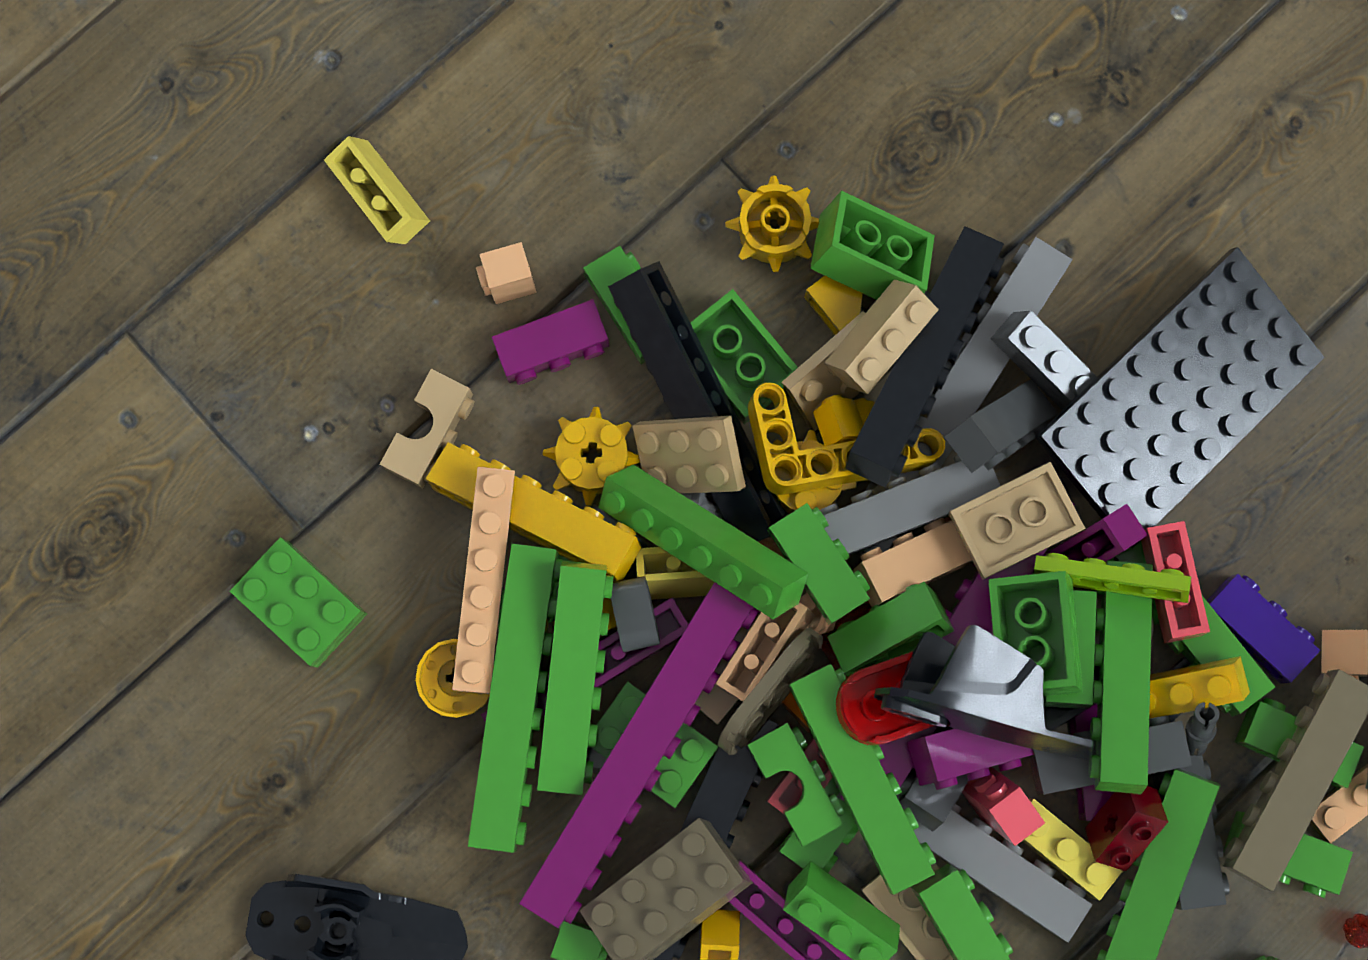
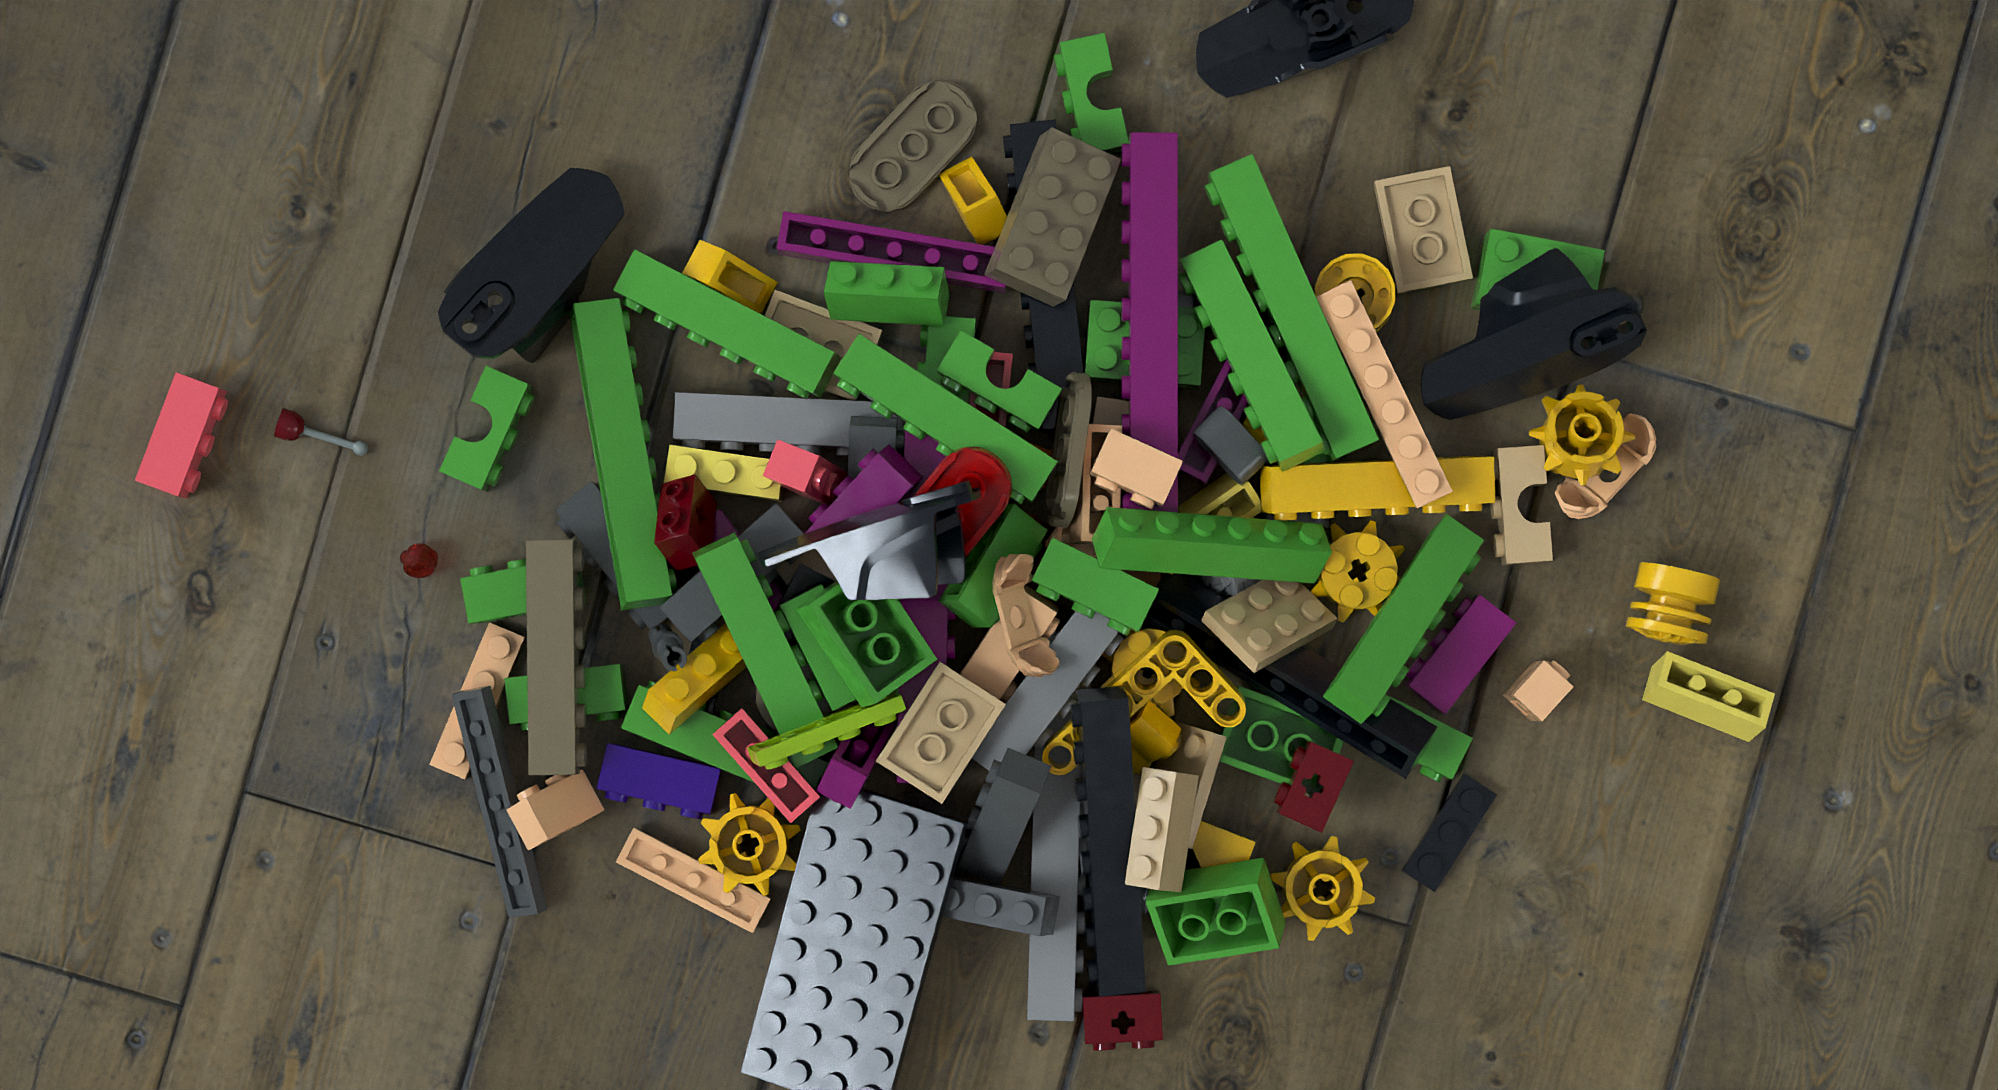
camera: 150 degrees right, 5 degrees up
(312, 421) = (1593, 497): none -> light nougat piece
(327, 462) = (1600, 437): none -> yellow brick
(329, 554) = (1532, 337): none -> black piece
(358, 277) = (1672, 603): none -> yellow wheel
(365, 701) = (1423, 230): none -> tan plate
(582, 388) = (1403, 620): none -> bright green brick
(646, 211) = (1449, 832): none -> black plate
(729, 638) = (1136, 469): none -> light nougat brick
(745, 282) = (1331, 775): none -> dark red brick
(906, 546) = (1026, 651): none -> light nougat piece
(1013, 220) = (1142, 1007): none -> dark red brick
(1236, 521) = (729, 833): none -> yellow brick
(1277, 531) = (692, 880): none -> light nougat plate

